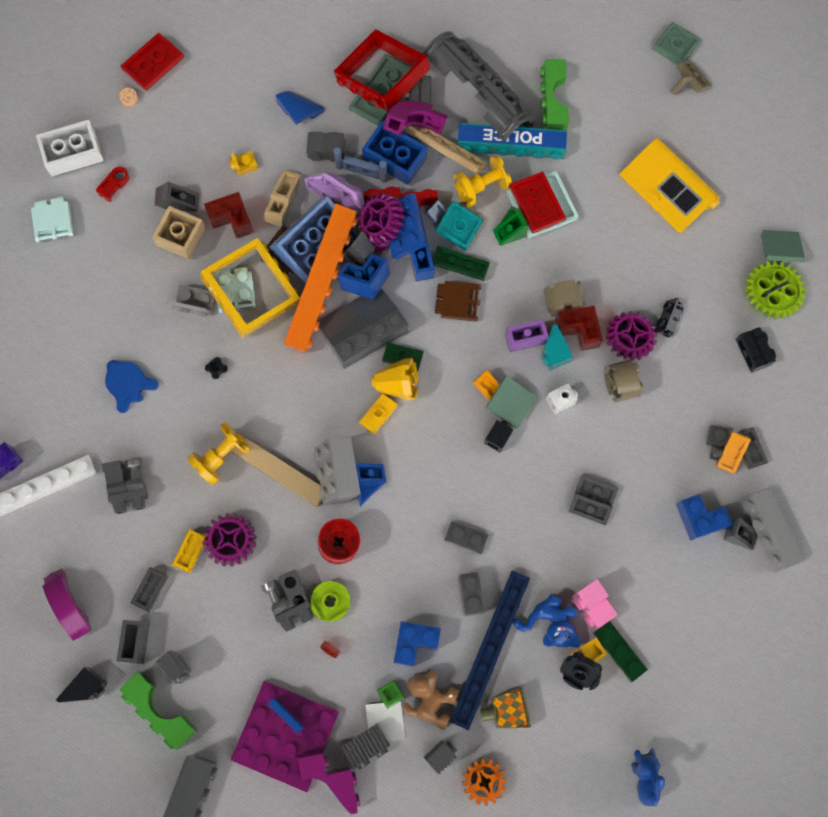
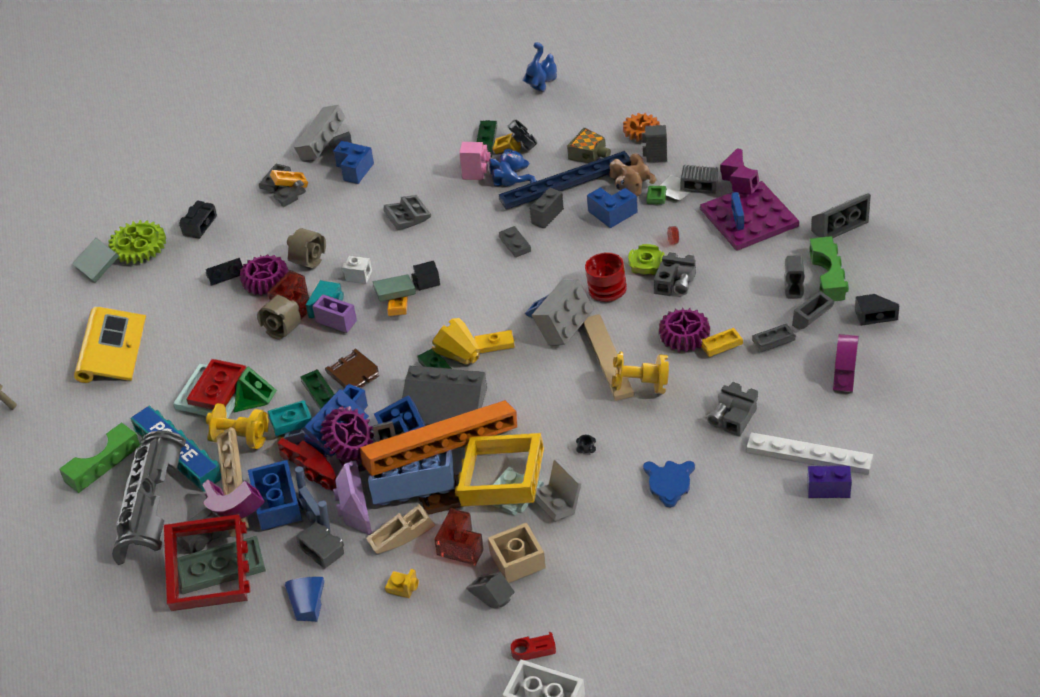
camera: 130 degrees left, 30 degrees down
(51, 219) = (618, 651): light aqua plate -> none

